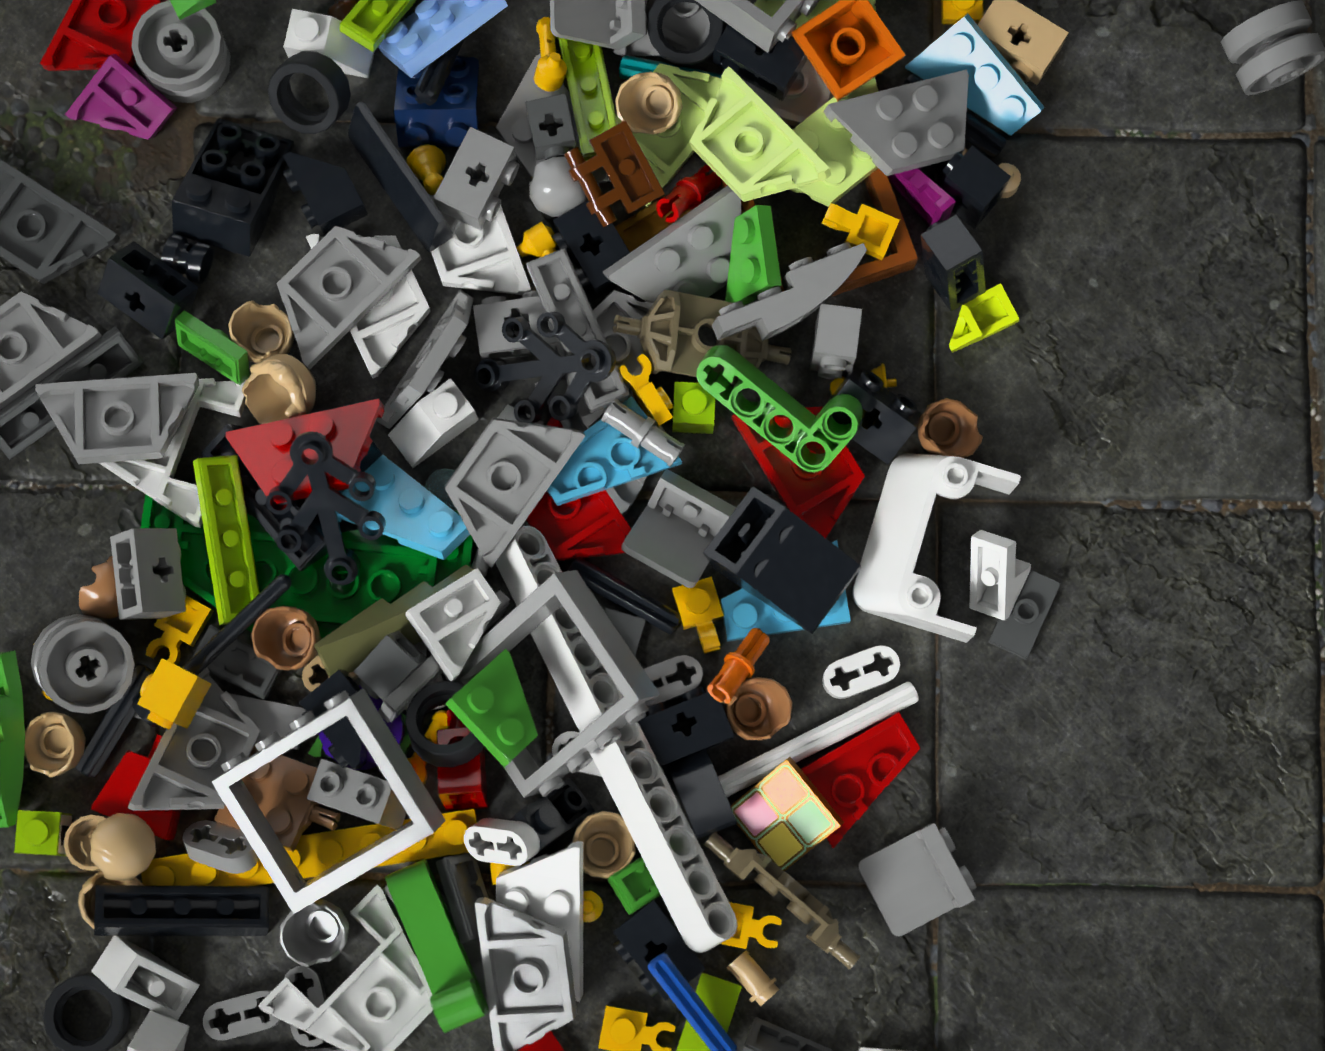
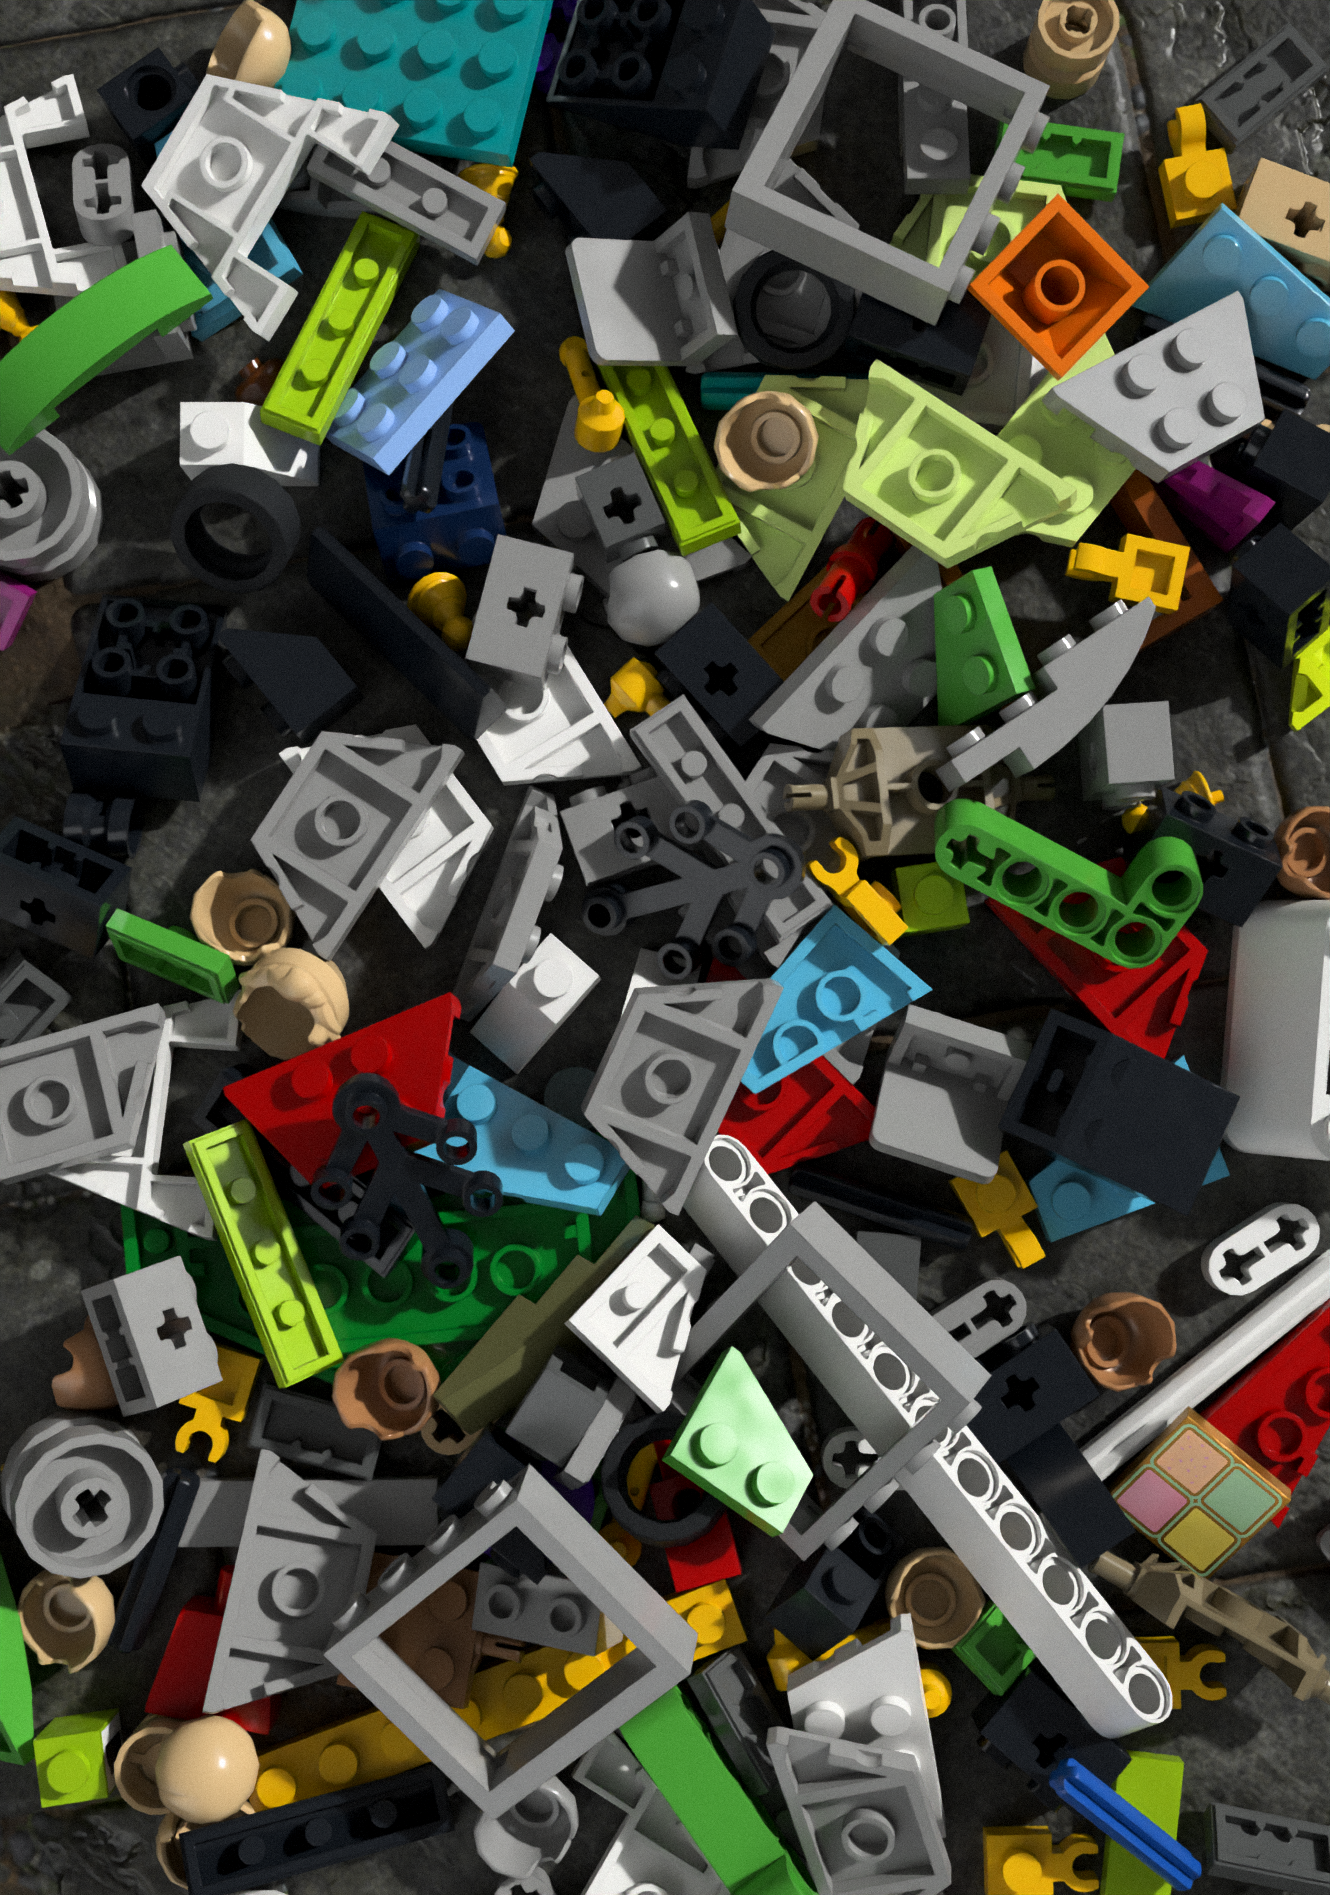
camera: 15 degrees left, 5 degrees up
(172, 695) = (231, 1523): yellow brick -> none
(212, 844) = (351, 1737): light grey beam -> none
(229, 633) = (206, 1530): black piece -> none
(500, 832) = (784, 1633): white beam -> none
(624, 165) = (752, 550): reddish brown plate -> none
(643, 432) = (868, 960): light grey pin -> none
(738, 666) = (1084, 1285): orange axle -> none
(753, 978) = (1199, 1748): tan pin -> none

